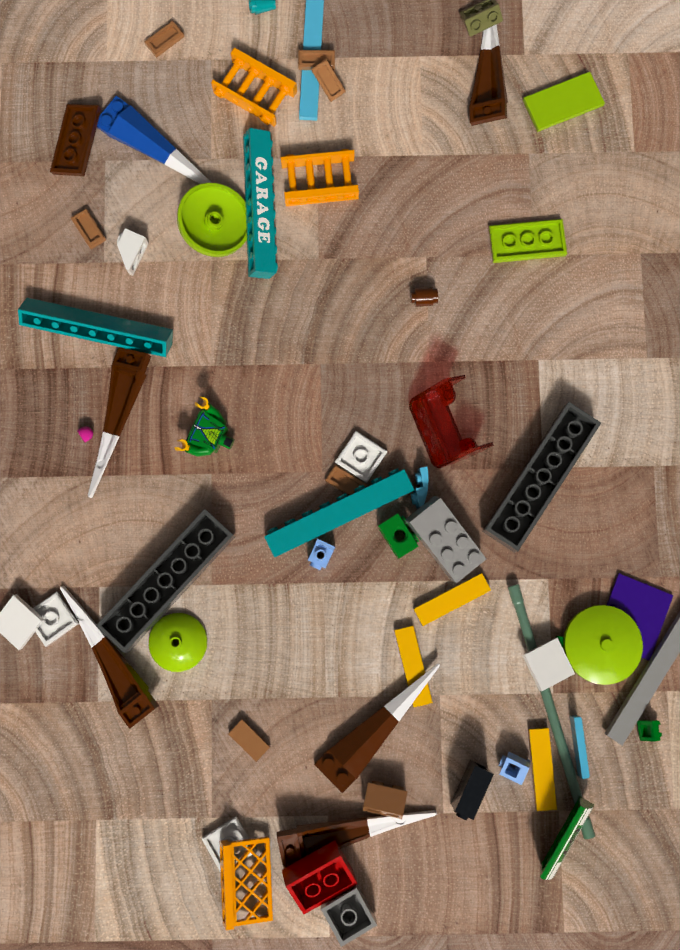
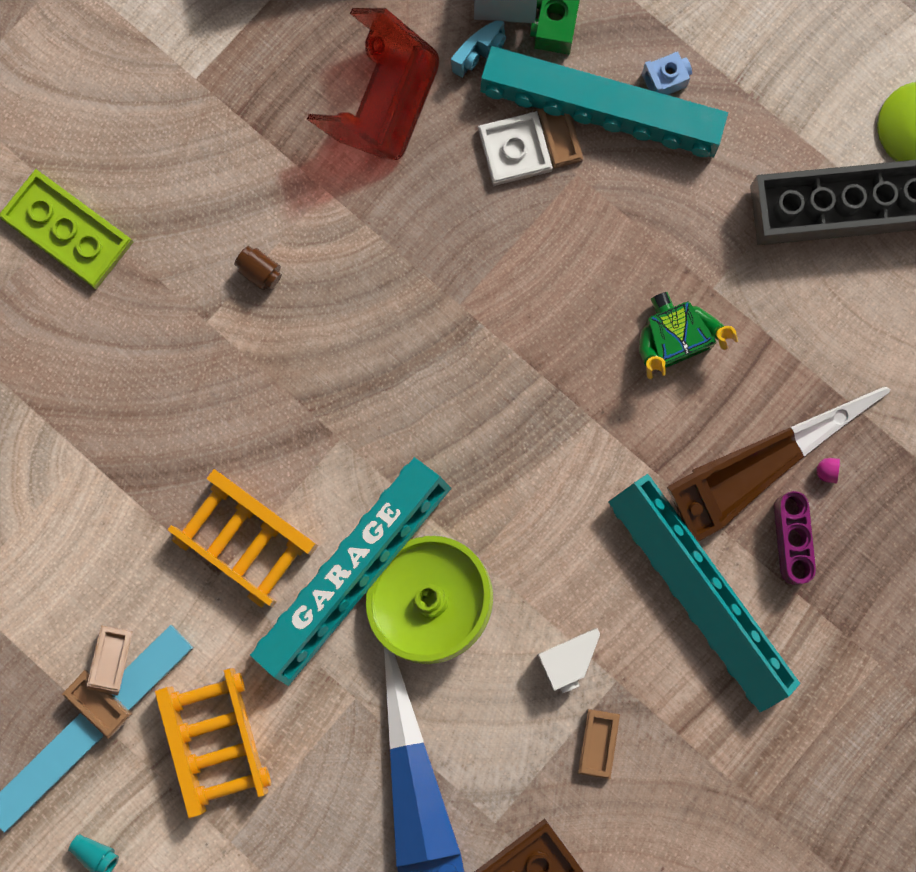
camera: 135 degrees left, 0 degrees up
(71, 380) = (802, 524): none -> magenta beam

